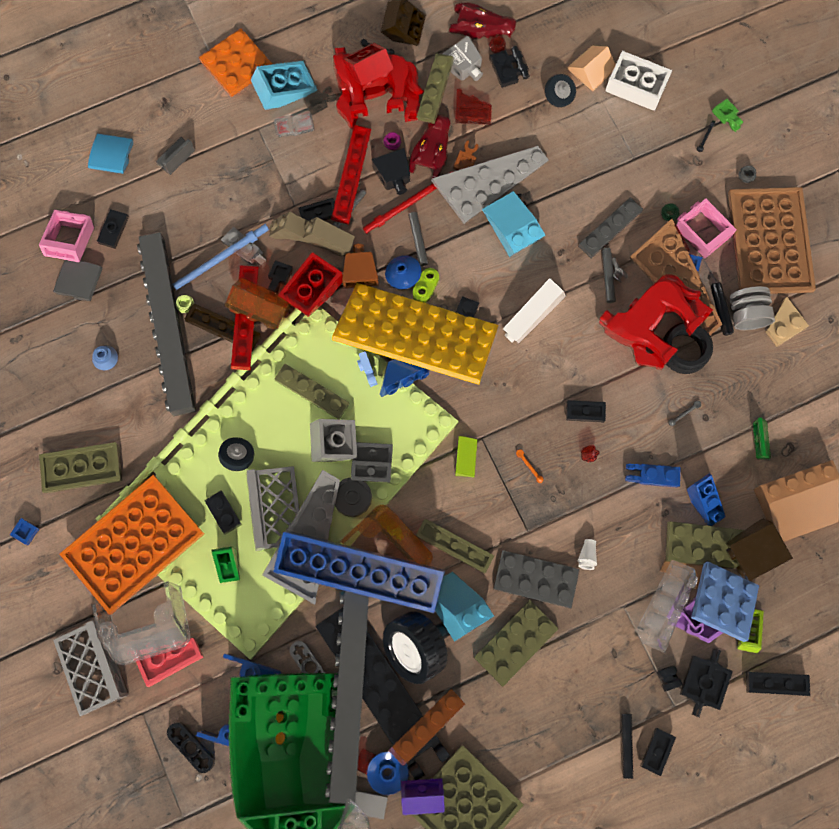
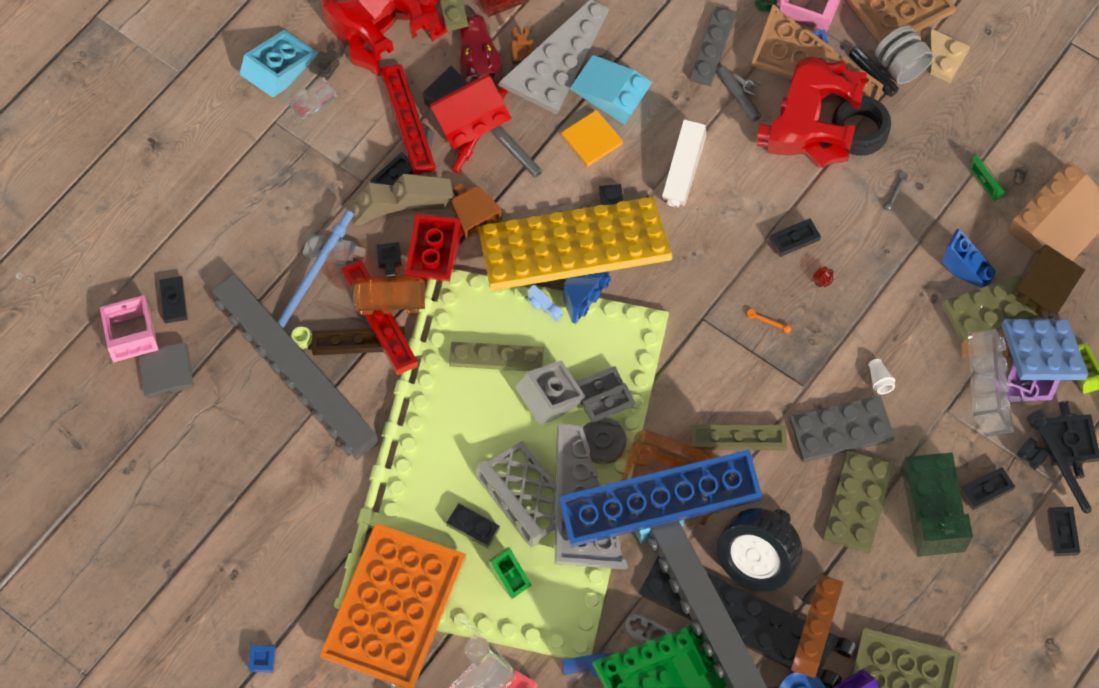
camera: 25 degrees left, 10 degrees down
(80, 467) = (285, 561): olive plate -> none
(104, 357) = (244, 436): medium blue cone -> none
(110, 153) = (124, 222): dark azure slope -> none
(175, 155) = (200, 190): dark grey panel -> none
(234, 61) = (209, 65): orange plate -> none
(236, 454) = (454, 457): black wheel -> none
(392, 136) = (431, 61): magenta plate -> none
(397, 191) = (470, 111): none -> slope
(405, 278) = (524, 199): blue dish -> none
(426, 284) = (553, 192): lime plate -> none
(460, 607) = (786, 492): medium azure slope -> none
(466, 457) = (697, 344): lime slope -> none
(478, 256) = (591, 138): none -> light orange tile
(571, 678) = (936, 505): none -> clear green hinge
(619, 686) = (987, 488): none -> black plate
(627, 746) = (1030, 543): black piece -> none
(655, 475) = (901, 266): blue hinge -> none
(688, 657) = (1039, 422): none -> black piece

